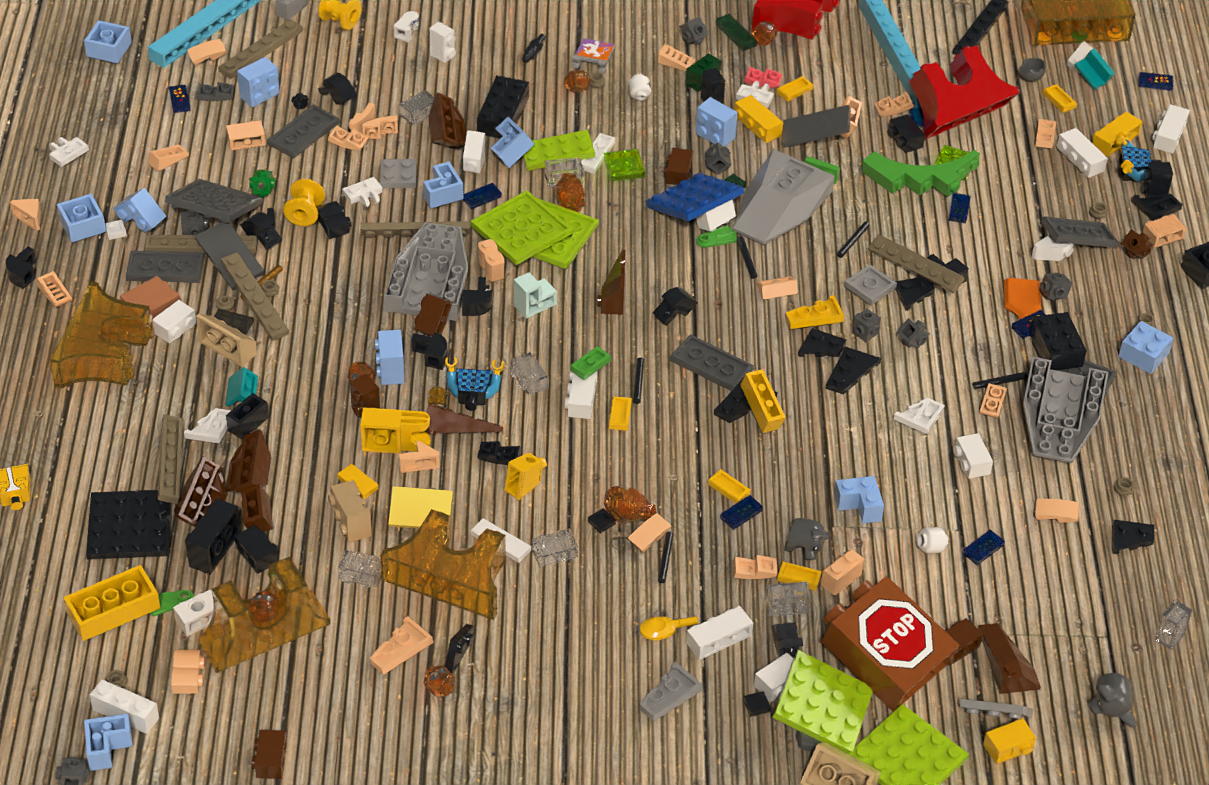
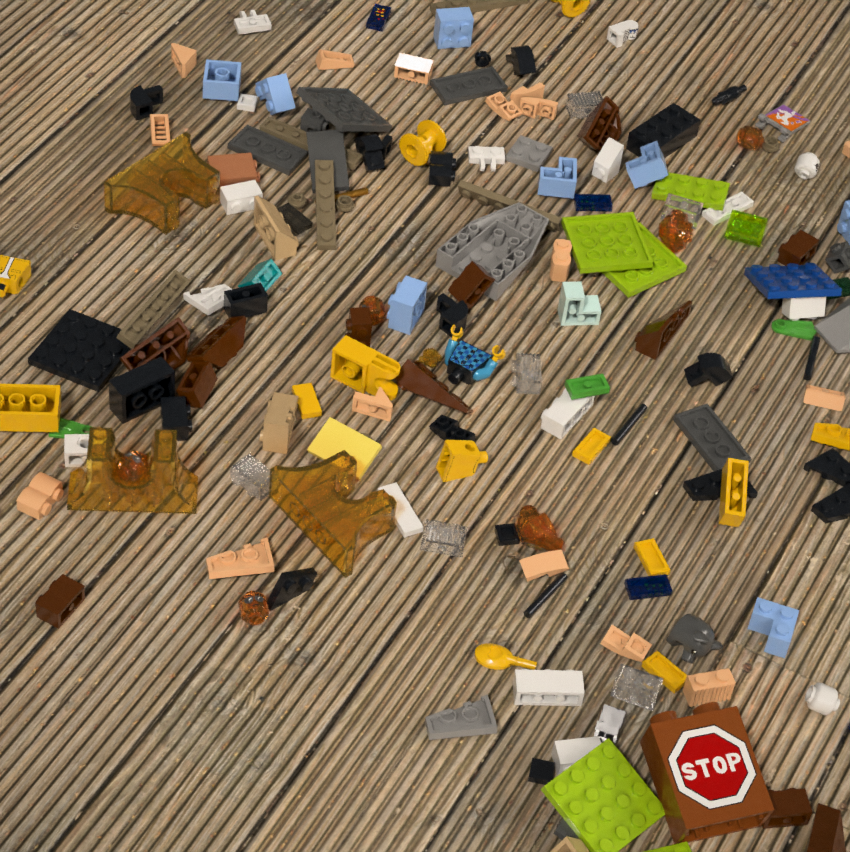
camera: 25 degrees right, 0 degrees up
(221, 92) = (417, 26): dark grey slope -> none
(264, 177) = (398, 112): green brick -> none
(442, 42) = (643, 56): white brick -> none
(477, 301) = (524, 291): black brick -> none

